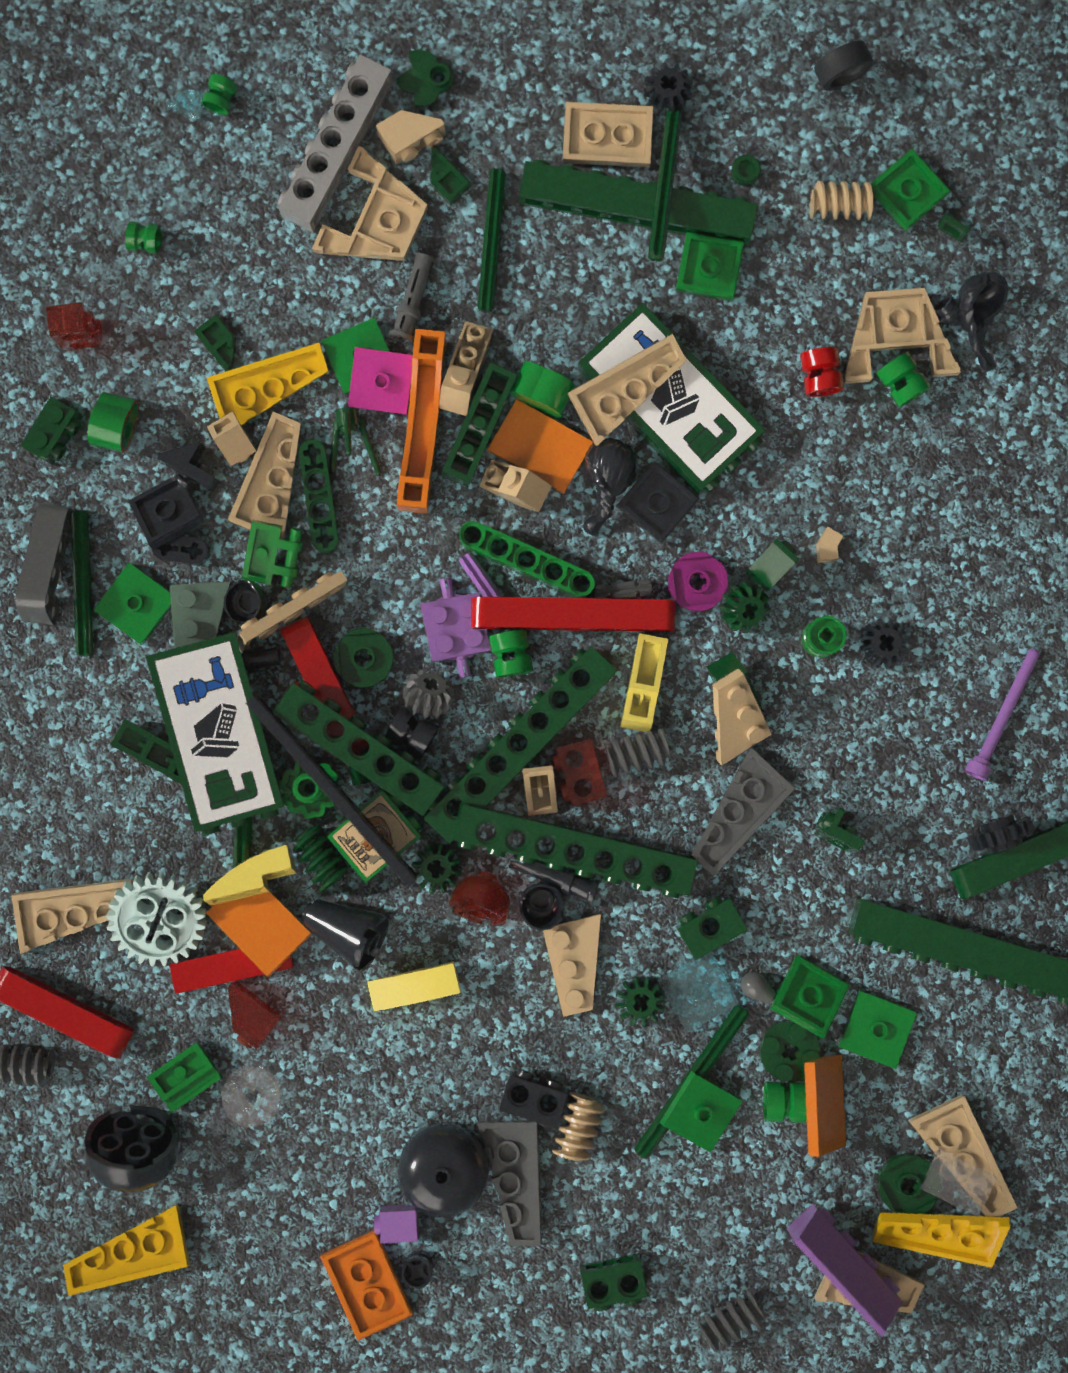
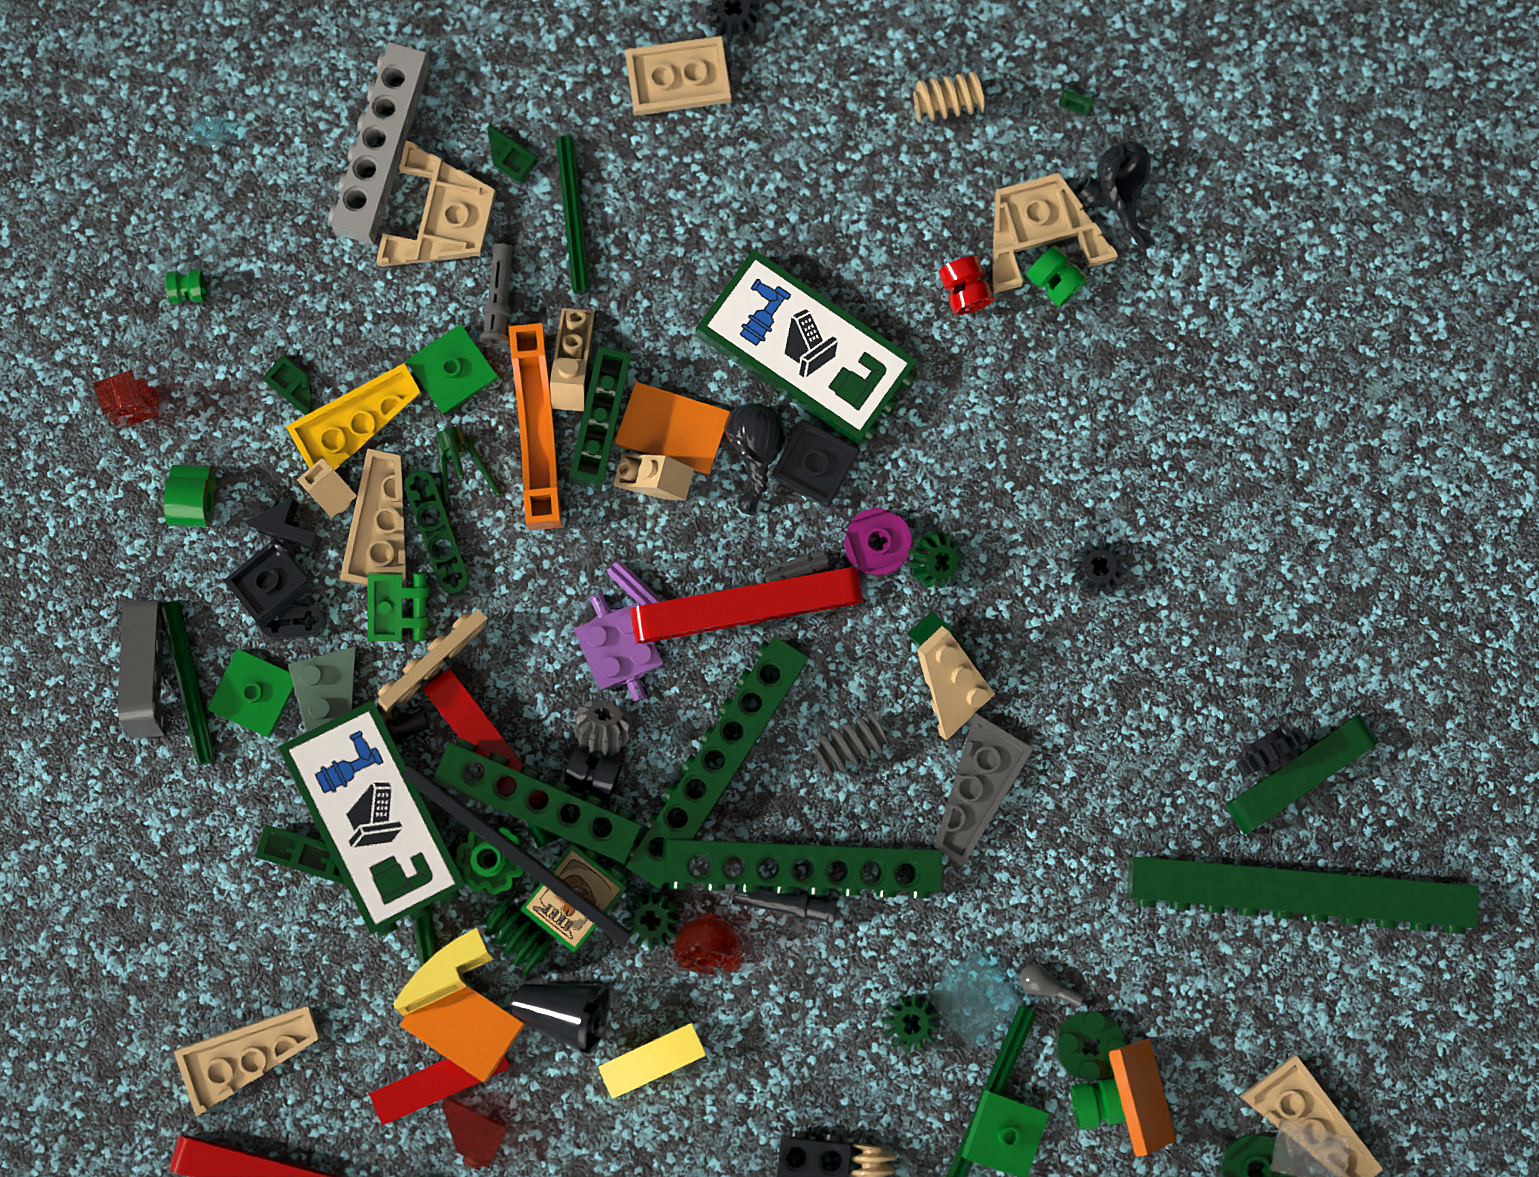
camera: 15 degrees left, 5 degrees down
(52, 431) = (123, 520): dark green bracket -> none
(129, 910) = (377, 1048): light aqua gear -> none
(219, 94) = (241, 115): green wheel -> none
(245, 601) = (376, 665): black hair -> none
(351, 646) = (505, 692): dark green plate -> none
(380, 380) = (480, 391): dark pink plate -> none
(408, 133) = (458, 116): tan slope -> none
(421, 78) = (460, 54): dark green plate -> none
(509, 643) = (683, 651): green wheel -> none
(516, 549) = (670, 545): green beam -> none
(540, 790) = (749, 809): tan slope -> none
(541, 906) = (778, 938): black hair -> none
(542, 389) = (662, 365): green piece -> none
(573, 960) = (827, 996): tan wing -> none
(588, 770) = (798, 777): clear red brick -> none
(618, 391) = (746, 351): tan wing -> none
(633, 202) = (725, 143): dark green brick -> none
(644, 683) = (841, 666): light yellow slope -> none
(665, 186) = (752, 119): dark green axle -> none
(709, 266) = (819, 196): green plate -> none
(728, 927) = (992, 918): dark green brick -> none
(745, 170) = (837, 85): dark green tile -> none
(773, 564) = (956, 505): slope -> none
(810, 996) = (1100, 979): green plate -> none
(823, 636) = (1029, 574): green wheel -> none
(827, 546) = (1012, 474): tan piece -> none
(839, 836) = (1094, 792): dark green bracket -> none
(877, 1029) = (1183, 1000): green plate -> none
(909, 189) = (1019, 71): green plate -> none
(980, 764) = (1233, 681): medium lavender piece -> none

